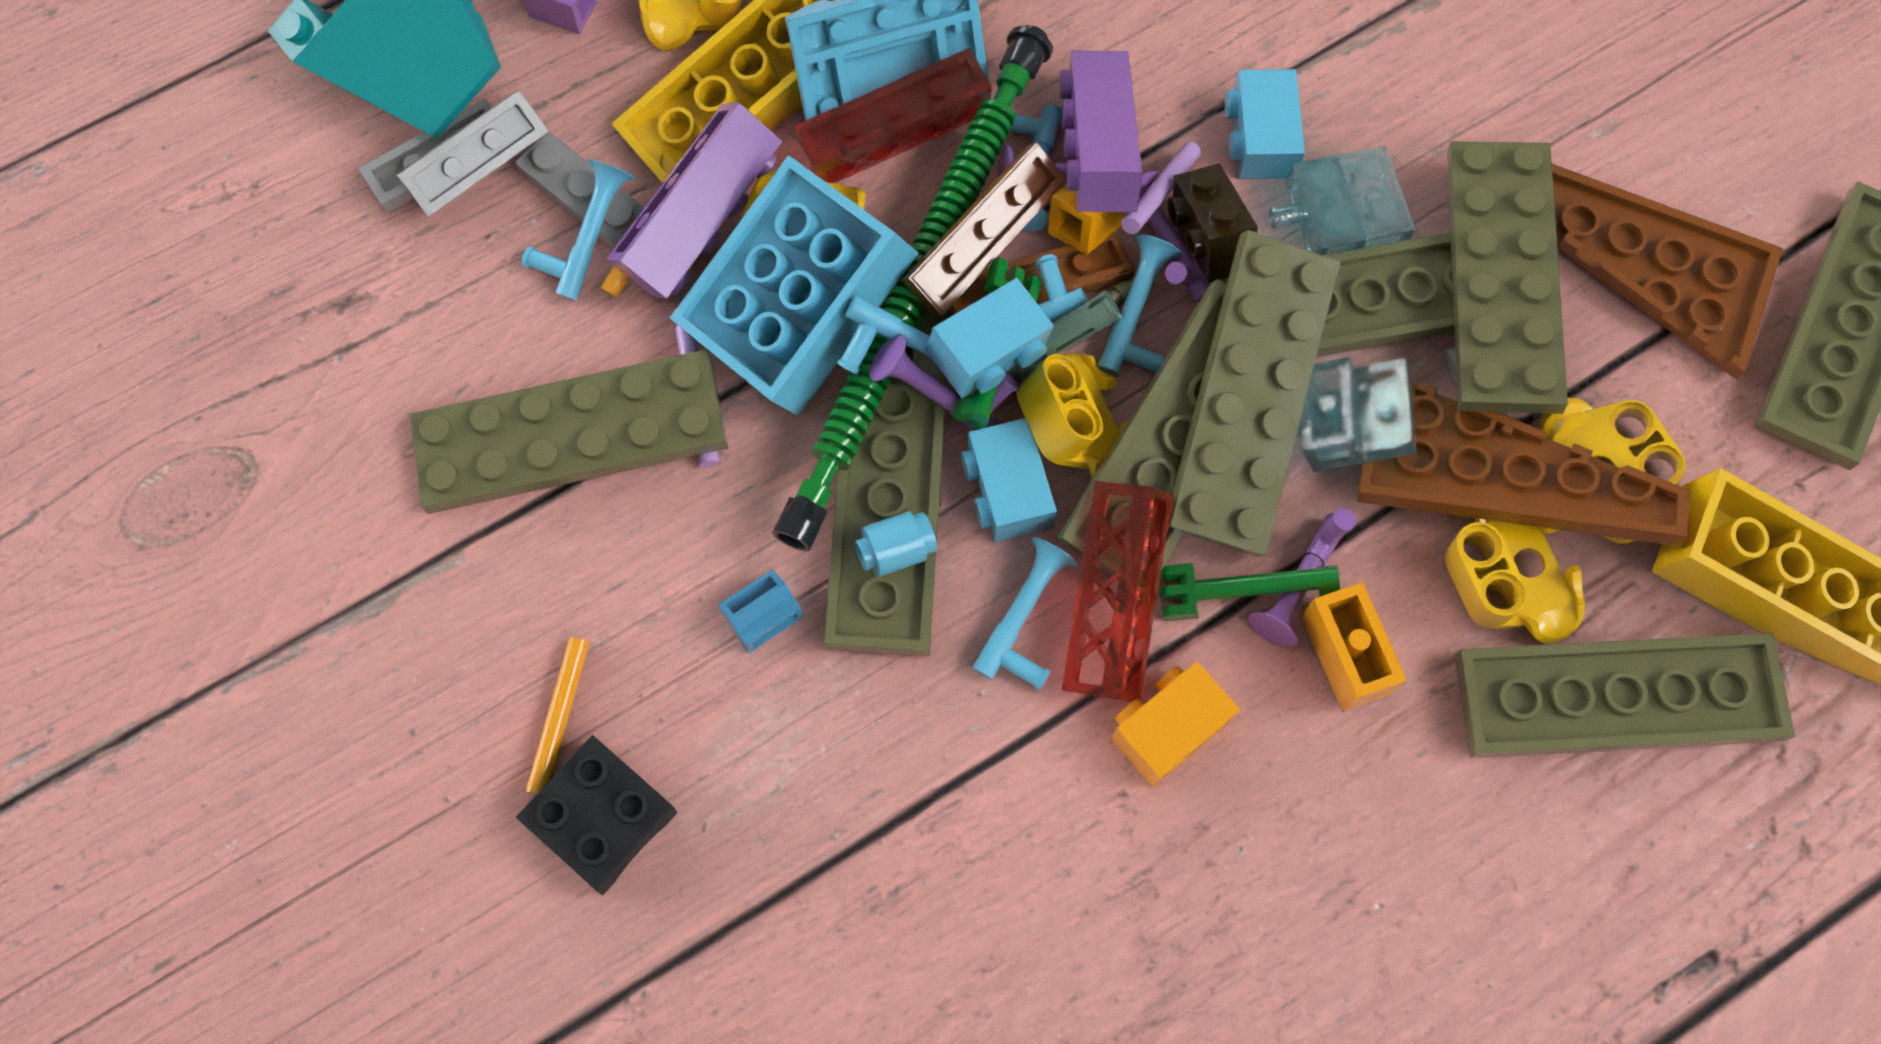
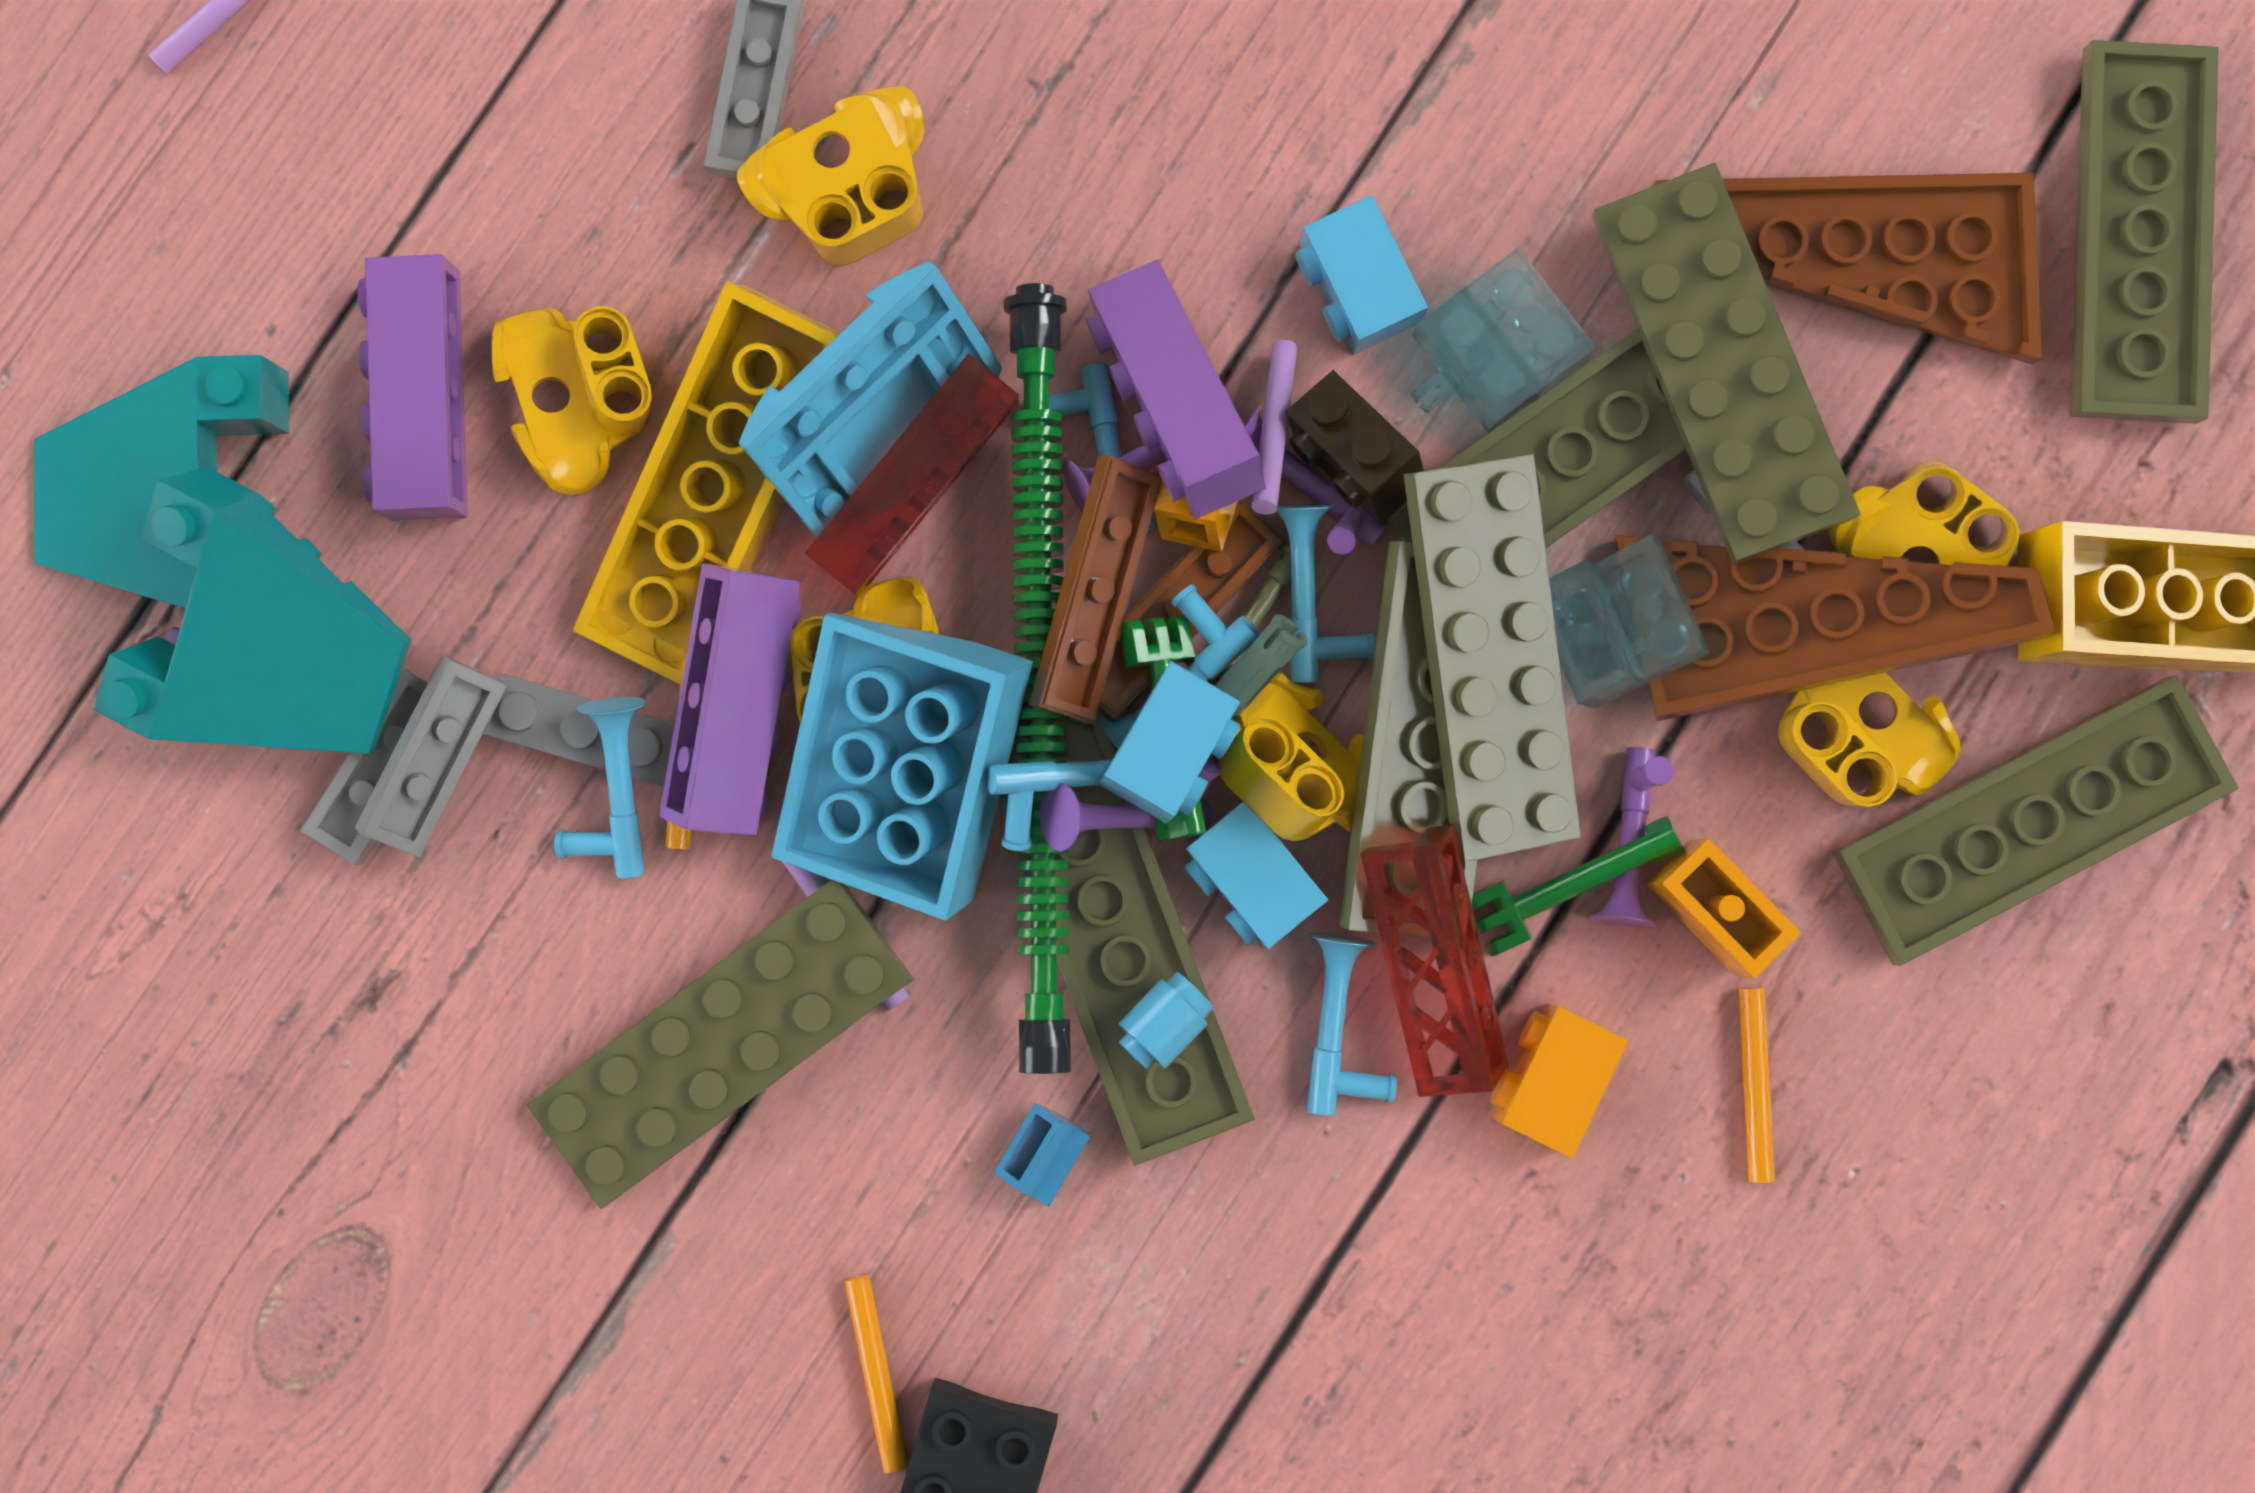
camera: 20 degrees left, 15 degrees up
(1327, 802) = (1756, 1085): none -> light orange bar

